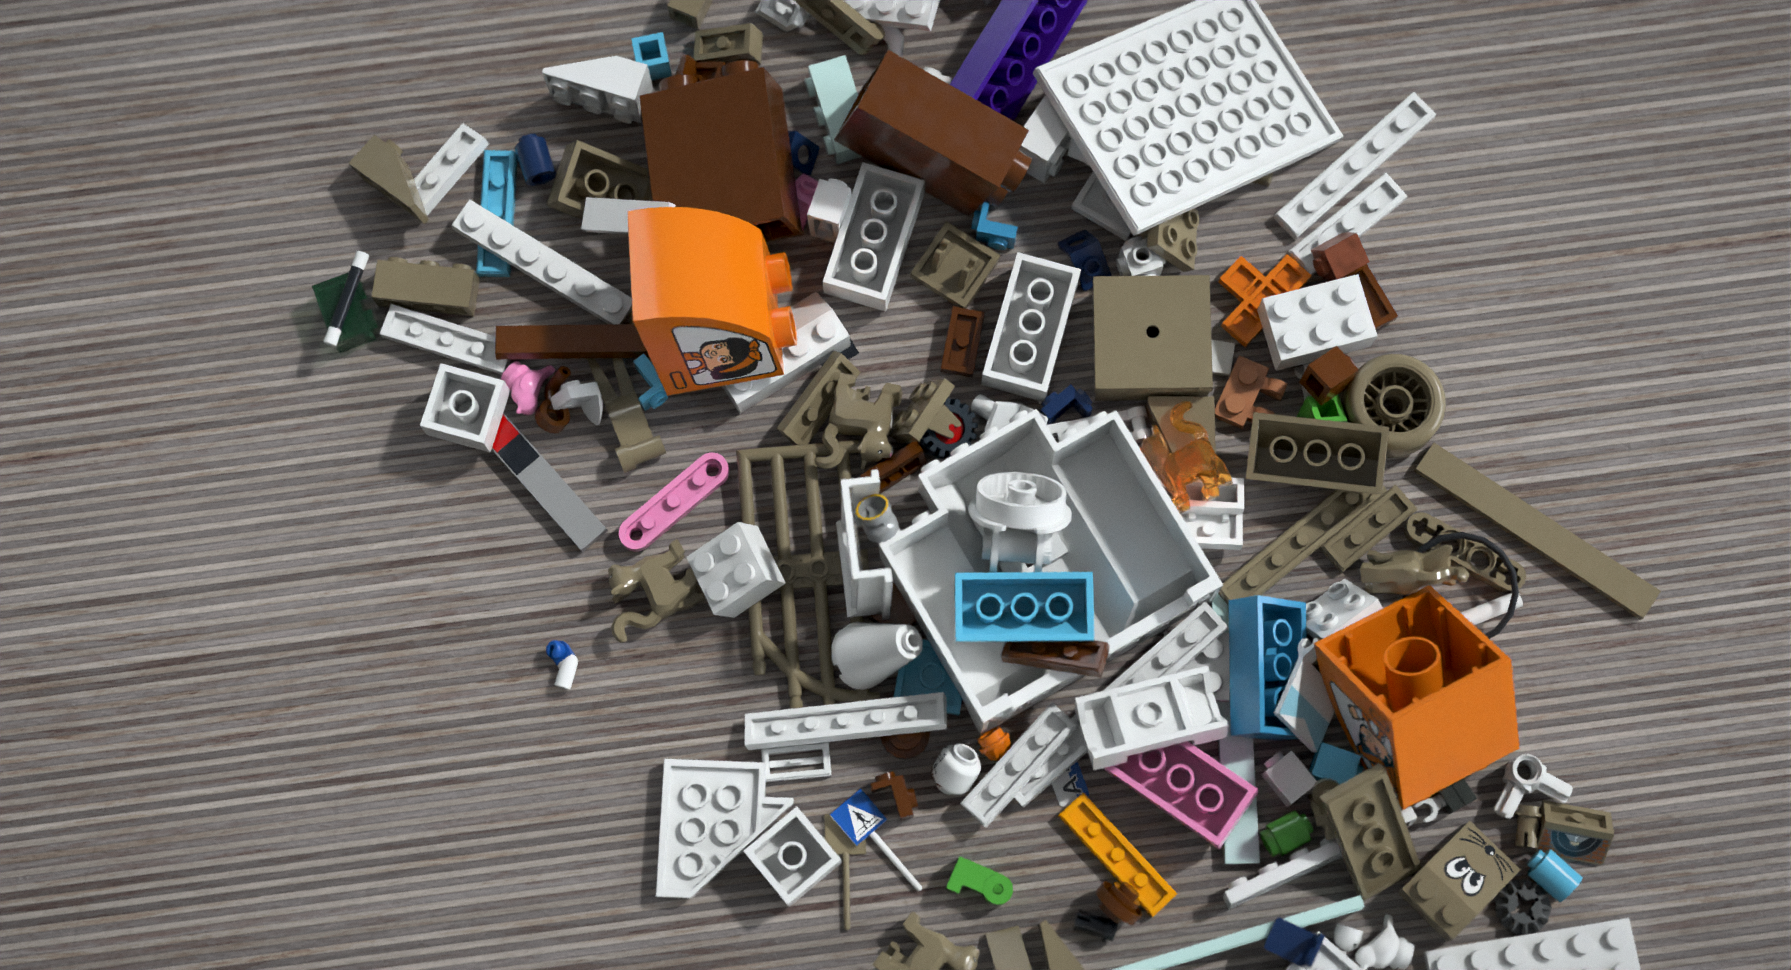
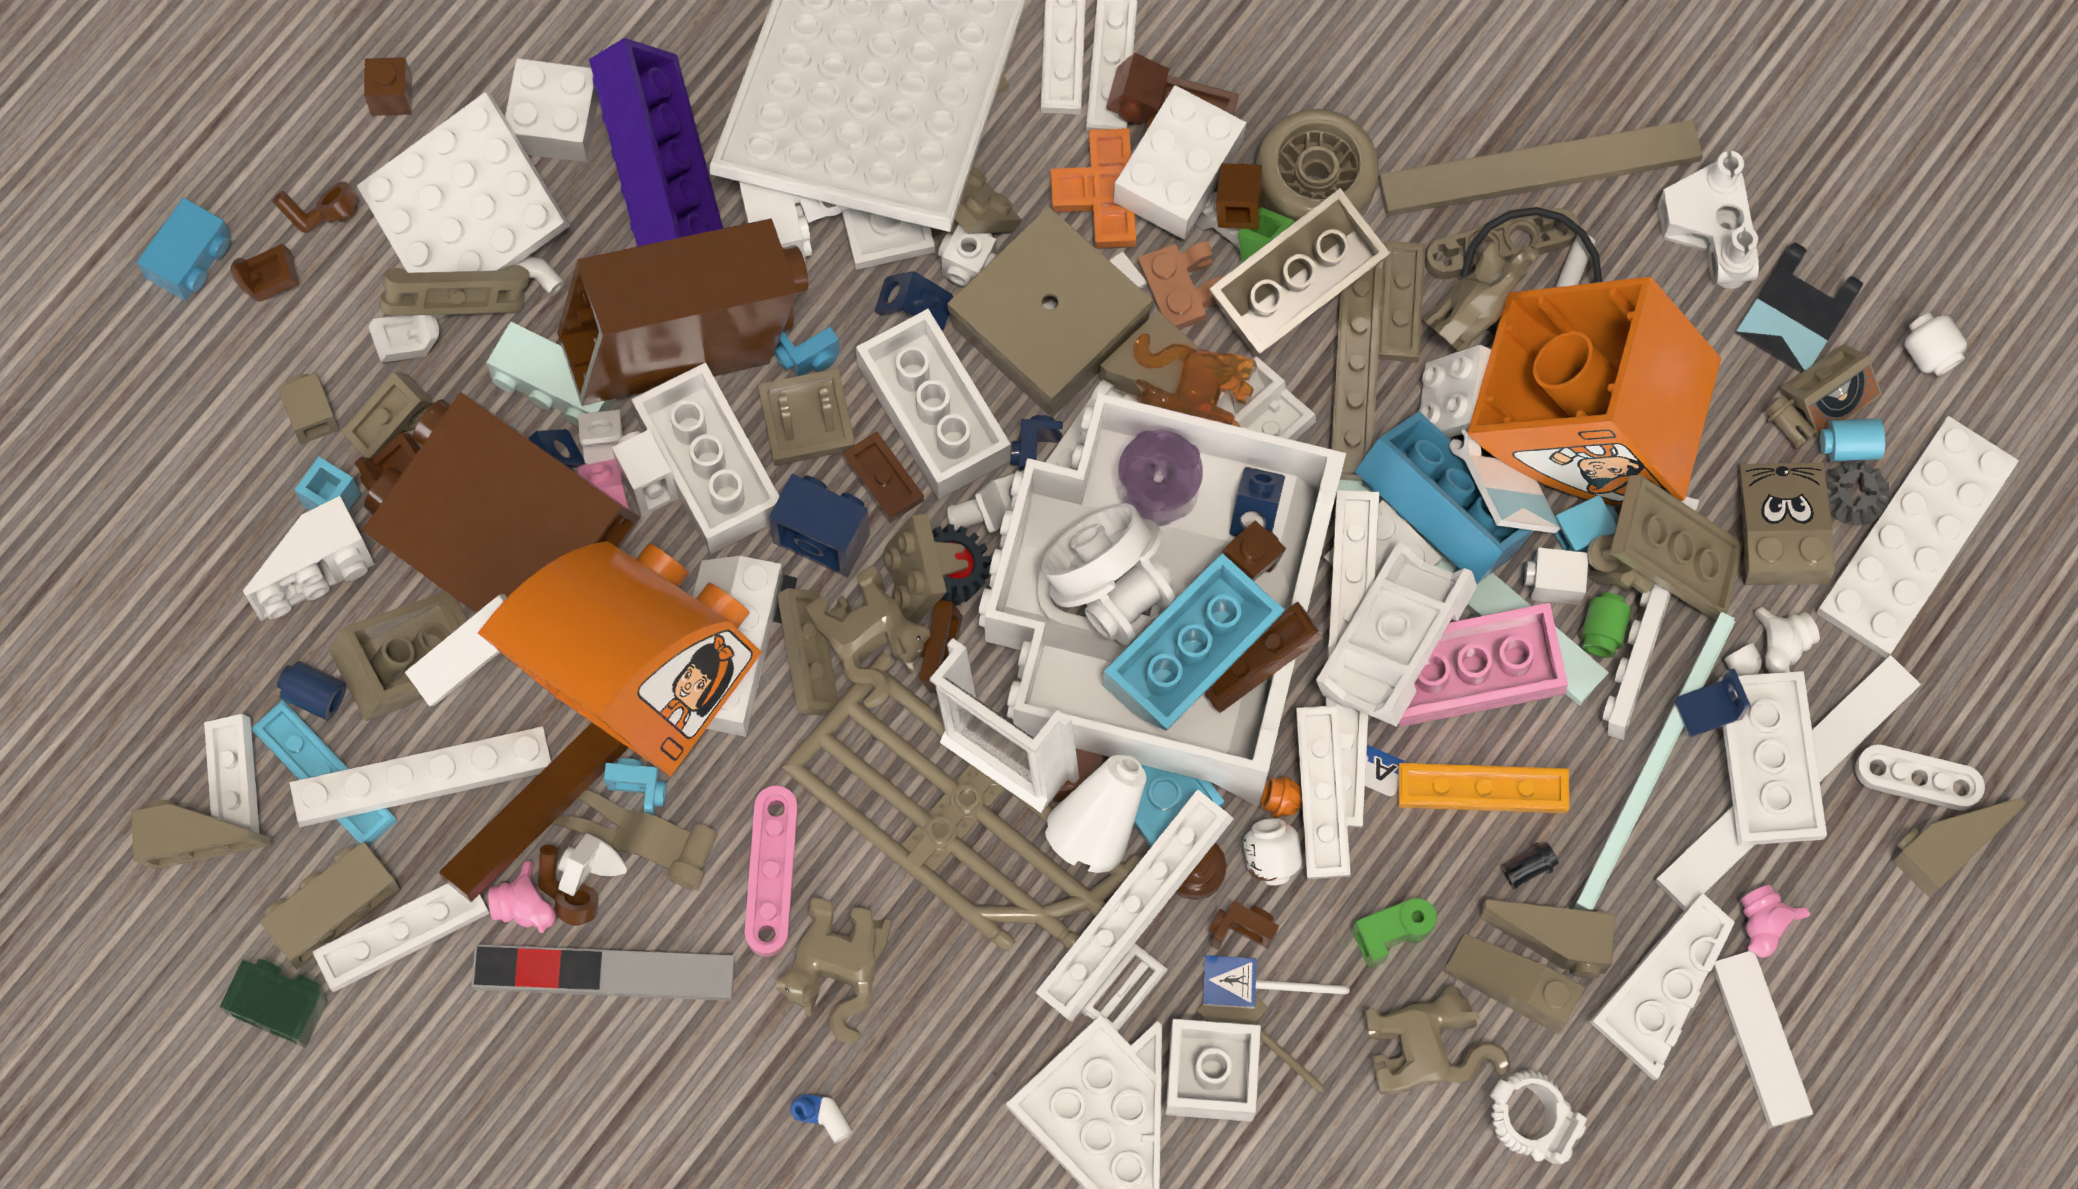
camera: 50 degrees left, 5 degrees down
(346, 298) = (268, 984): black bar -> none
(465, 407) = (491, 971): white brick -> none
(735, 570) = (896, 870): white brick -> none
(829, 164) = (599, 434): none -> white bracket
(877, 518) = (990, 686): light grey wheel -> none
(895, 333) = (820, 524): none -> dark blue brick
(1113, 475) = (1164, 455): none -> clear purple brick
(1115, 589) = (1255, 551): none -> reddish brown bracket
(1119, 902) = (1530, 822): reddish brown plate -> none
(1155, 558) = (1260, 493): none -> dark blue bracket
(1451, 797) = (1708, 461): pearl dark grey piece -> none
(1539, 780) = (1749, 395): white axle -> none
(1599, 766) = (1794, 317): none -> black flag
(1602, 647) = (1700, 207): none -> white piece
(1666, 868) = (1935, 344): none -> white head

